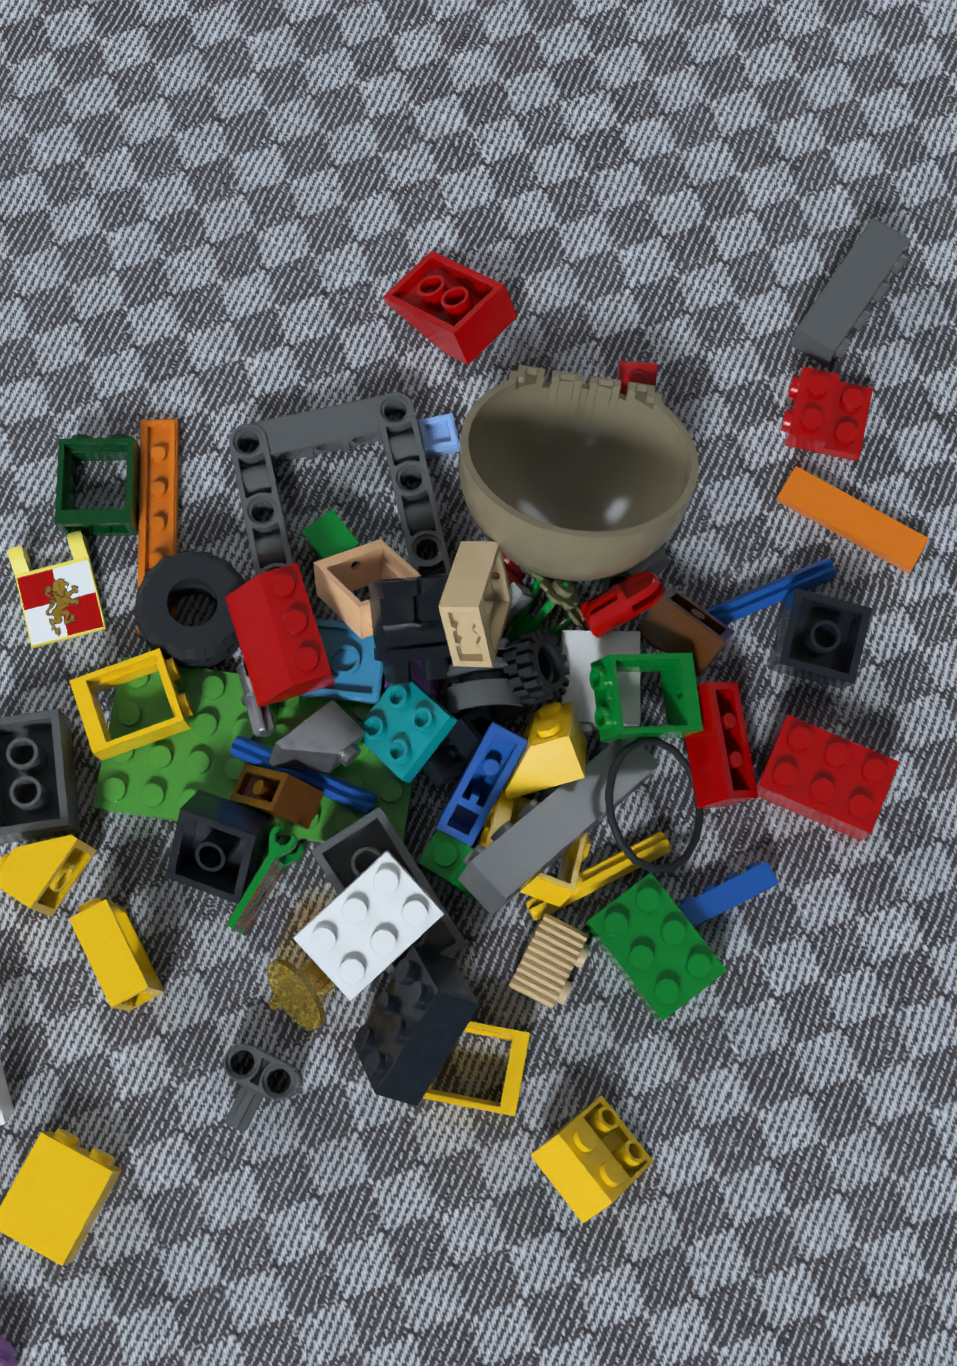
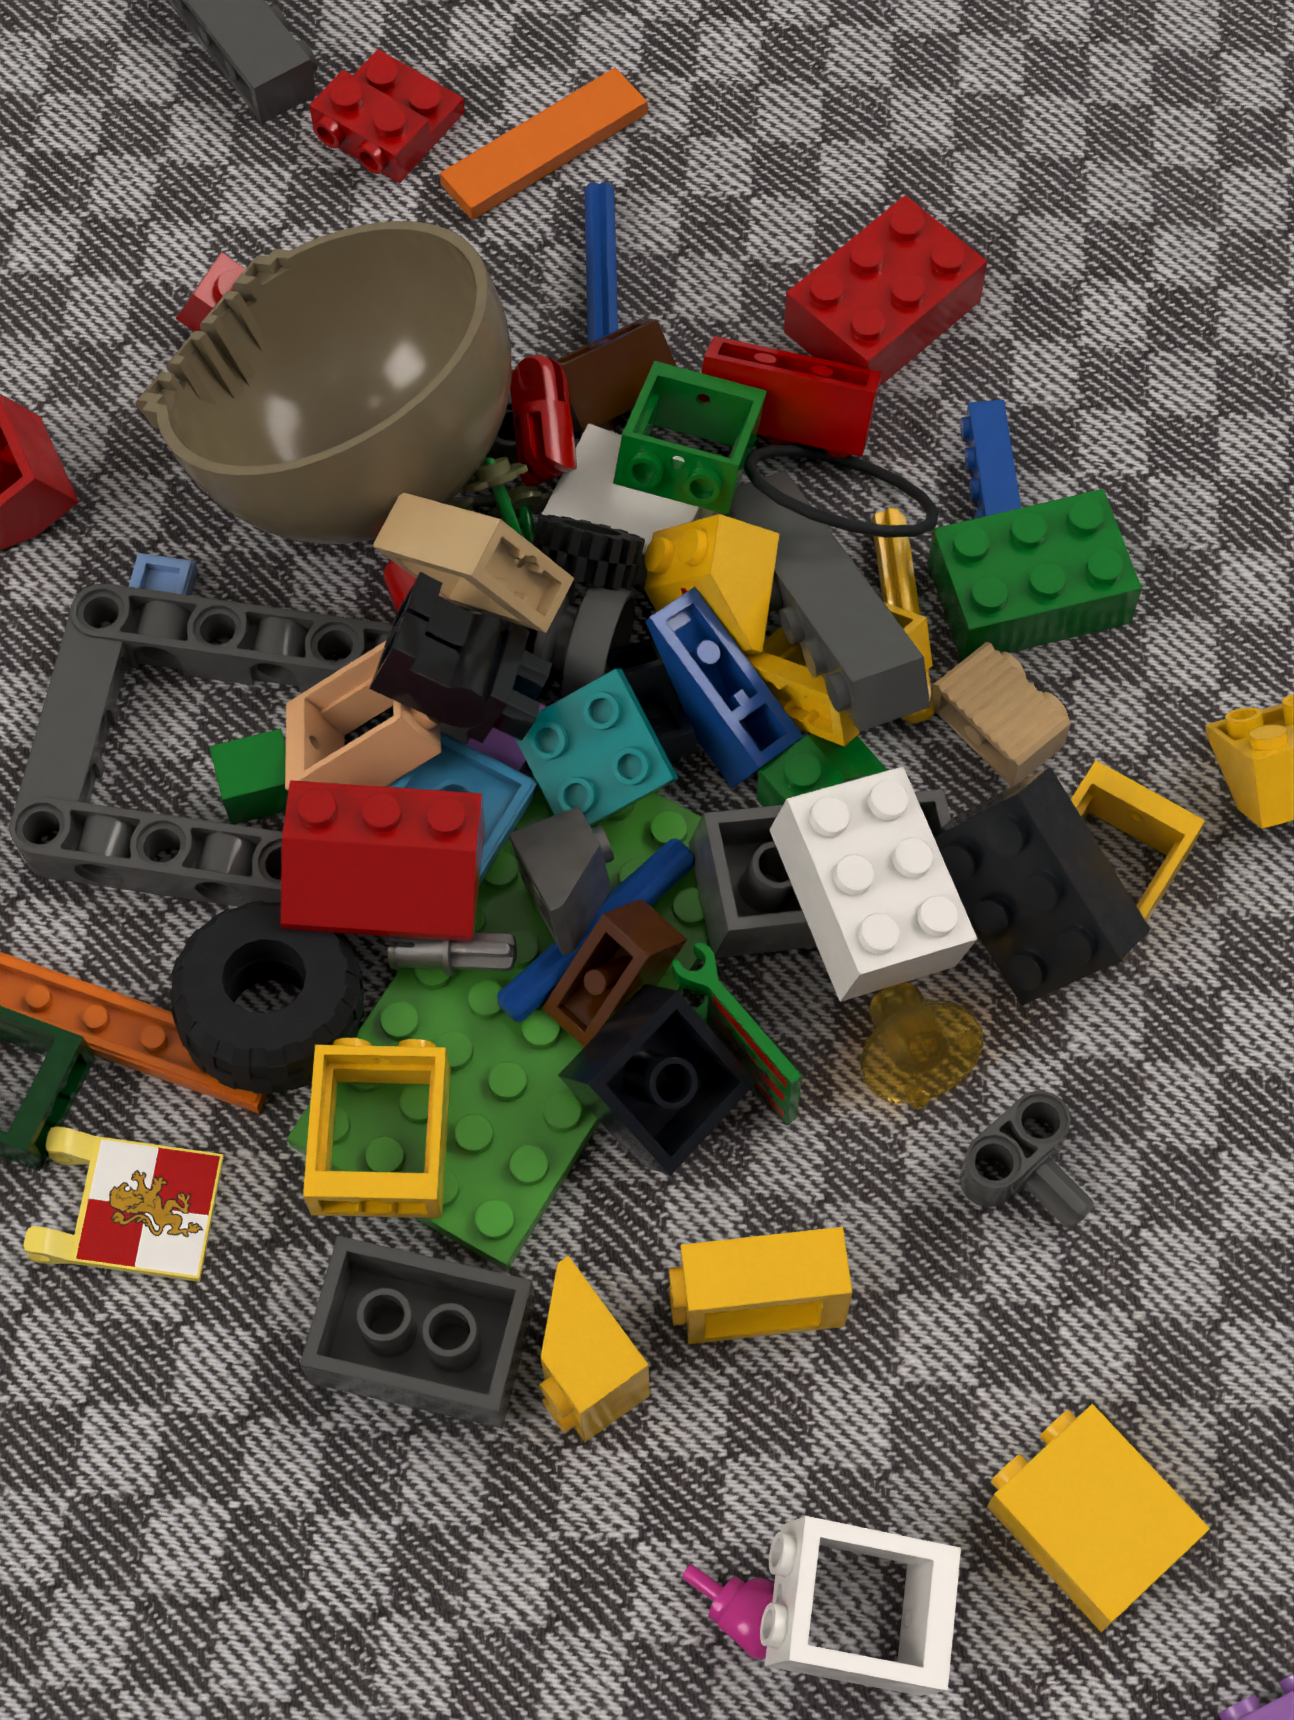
camera: 70 degrees left, 10 degrees down
(820, 638) = (696, 227): black brick -> none

